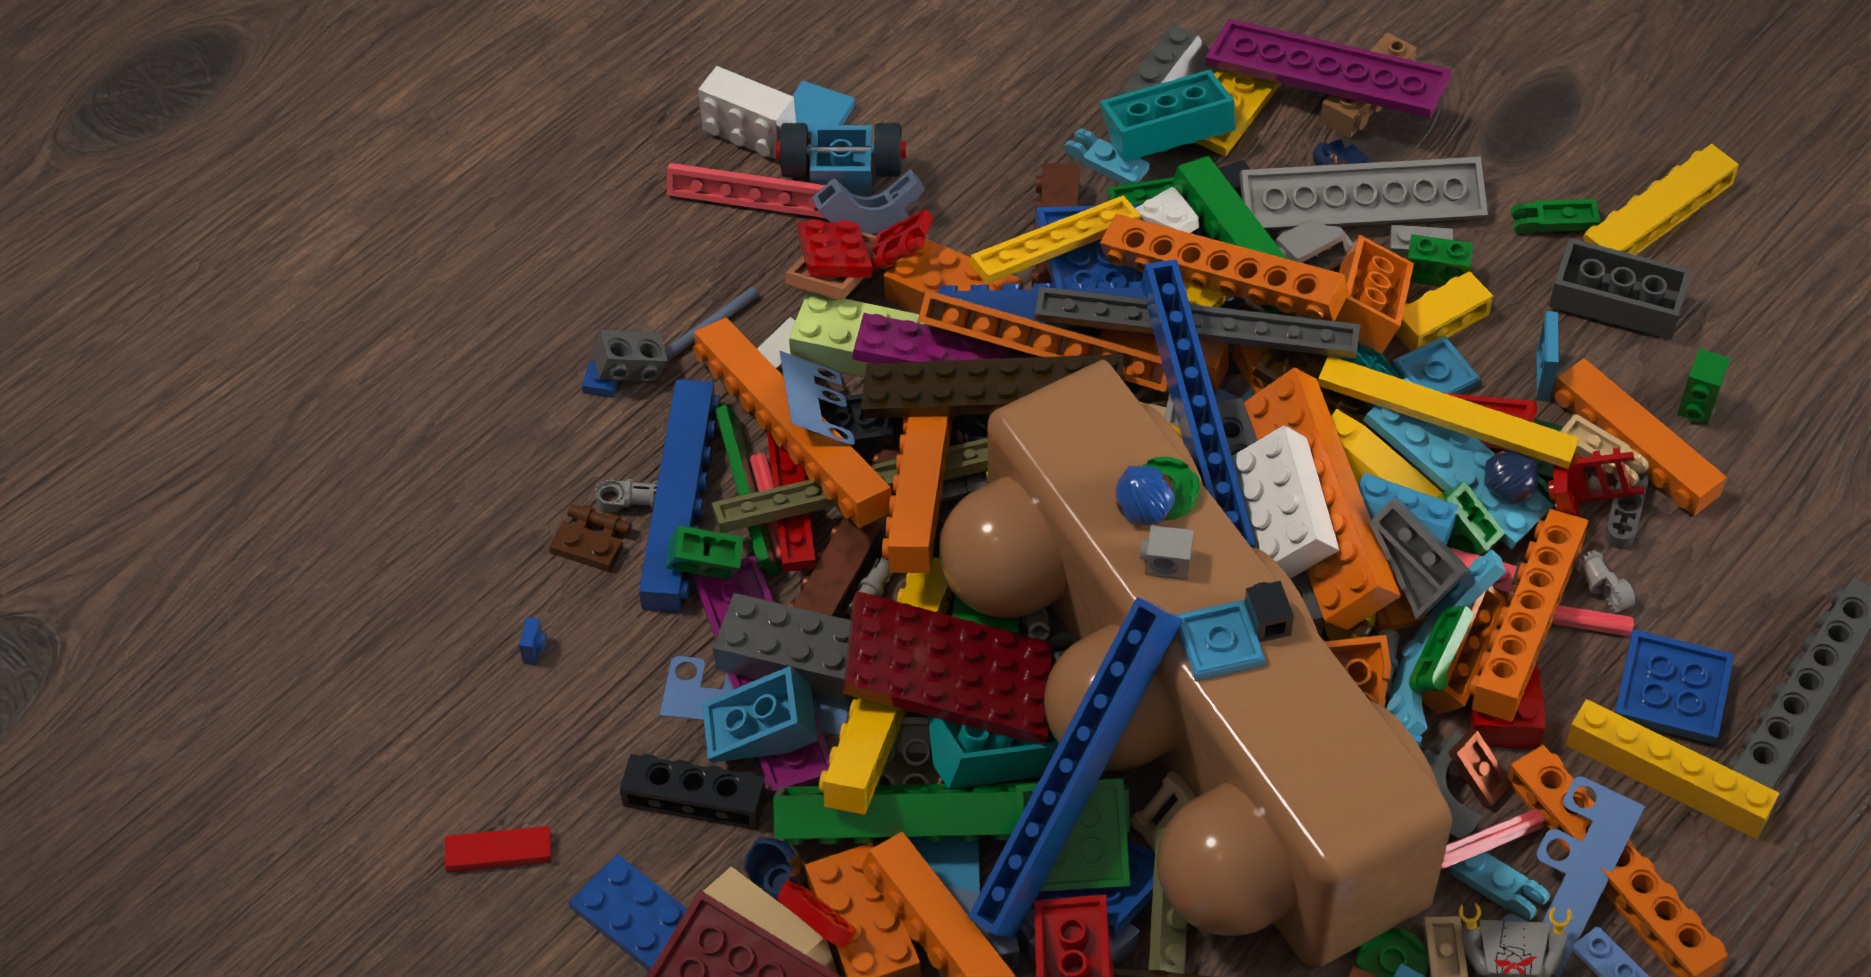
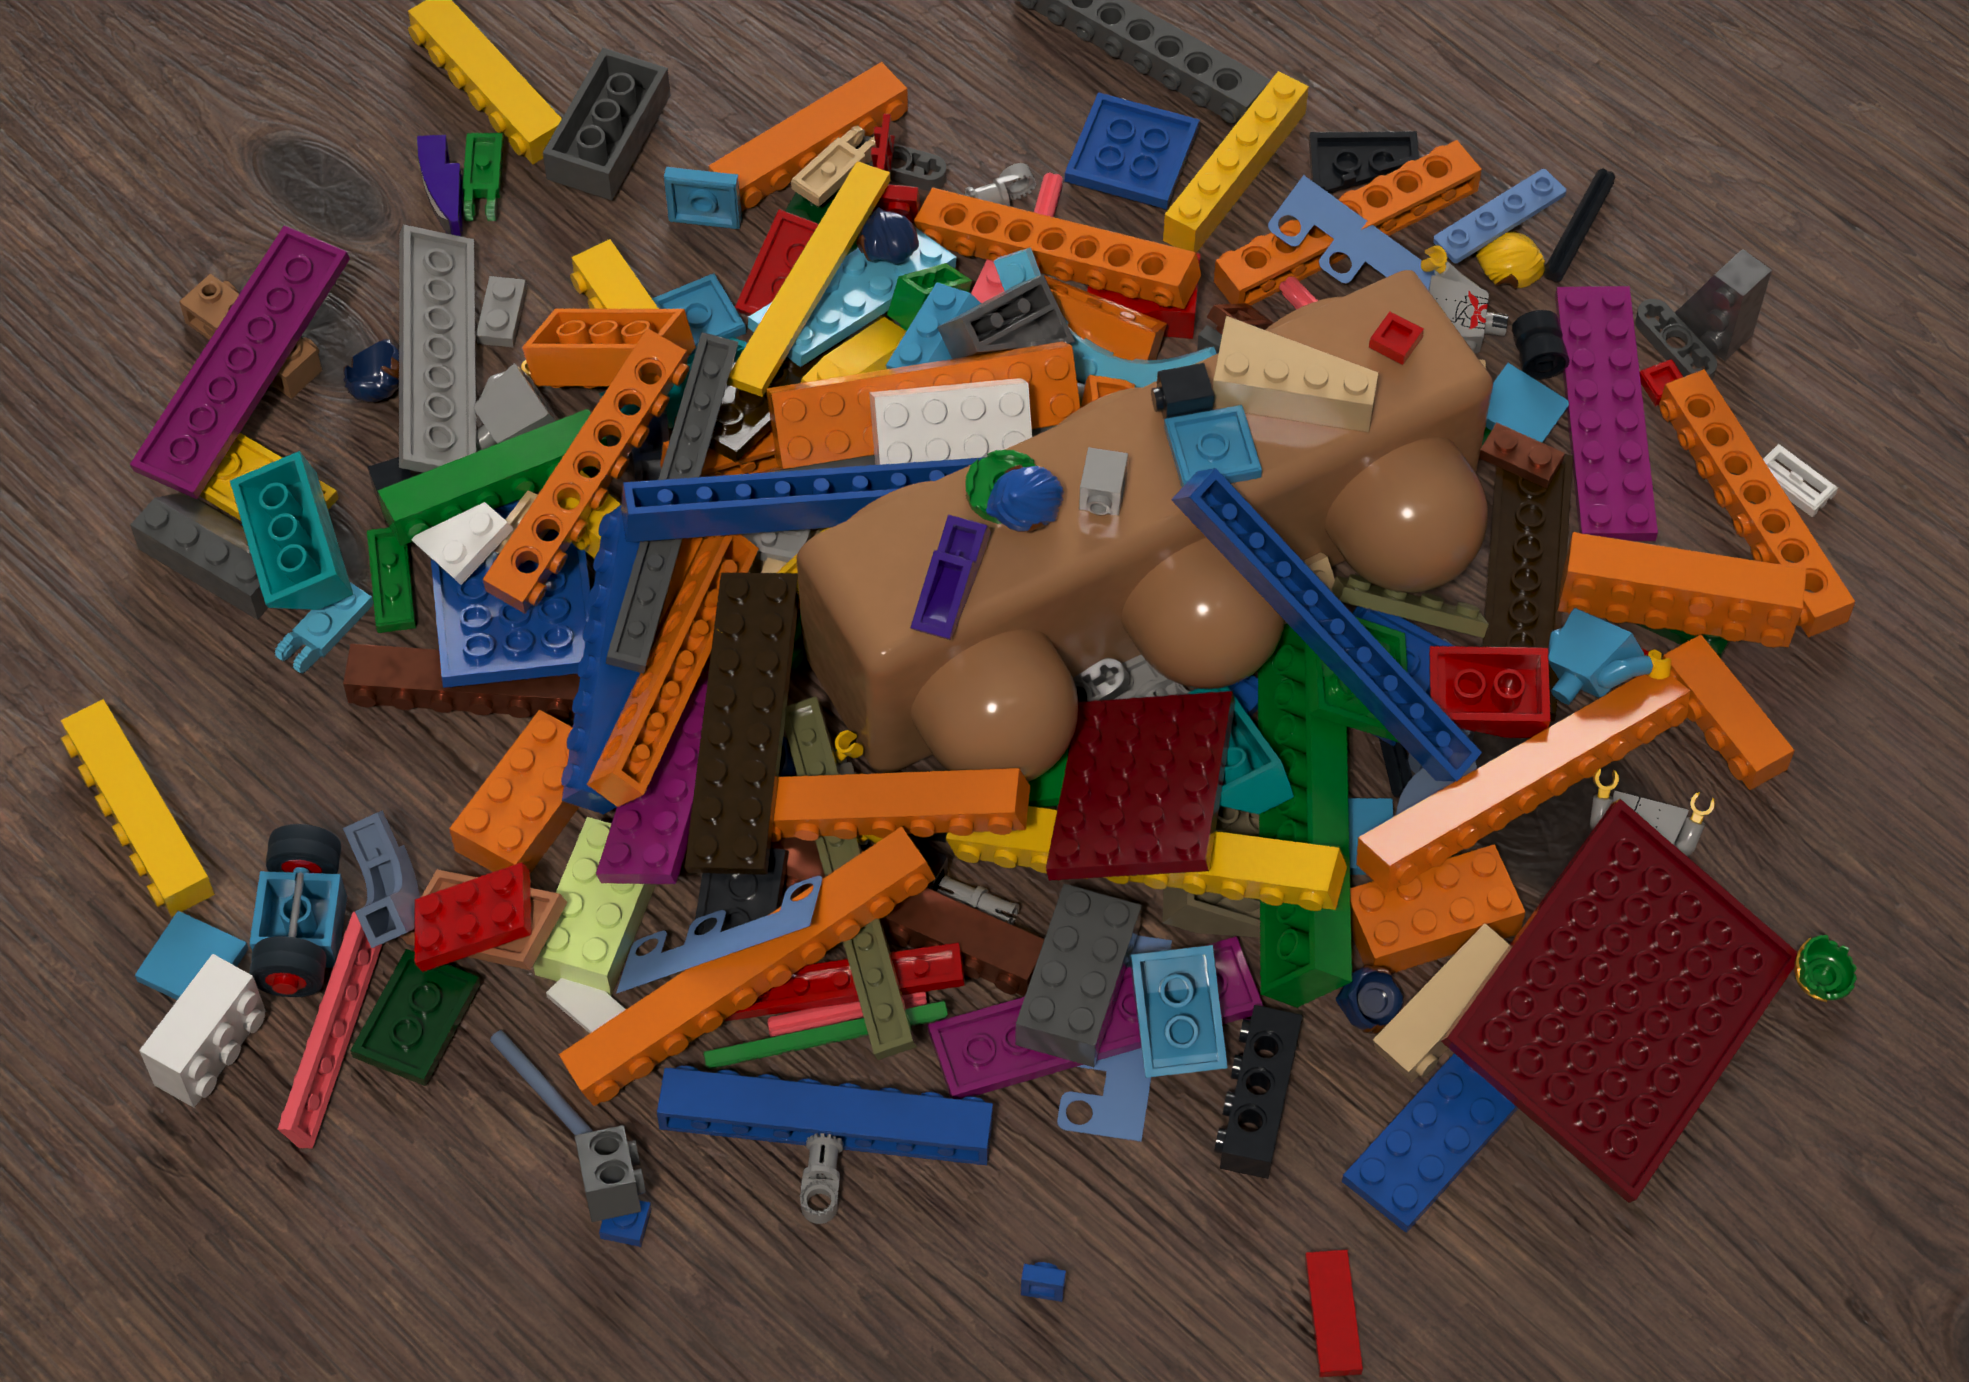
camera: 90 degrees left, 5 degrees up
(588, 546) = (892, 1229): reddish brown plate -> none
(704, 552) = (949, 1062): green brick -> none
(760, 239) = (415, 1019): none -> dark green plate
(816, 914) = (1447, 938): red beam -> none
(900, 240) = (460, 835): red plate -> none
(938, 65) = (136, 807): none -> yellow brick
(1049, 240) = (506, 654): yellow plate -> none
(1066, 448) = (950, 577): none -> dark purple slope
(1293, 680) = (1290, 380): none -> tan wedge
(1353, 782) = (1396, 338): none -> red plate
(1438, 259) = (543, 288): green brick -> none
(1440, 650) = (1112, 325): green plate -> none
(1550, 182) = (442, 182): none -> dark purple slope
(1701, 876) = (1357, 158): none -> black wing
(1703, 386) = (758, 65): green brick -> none

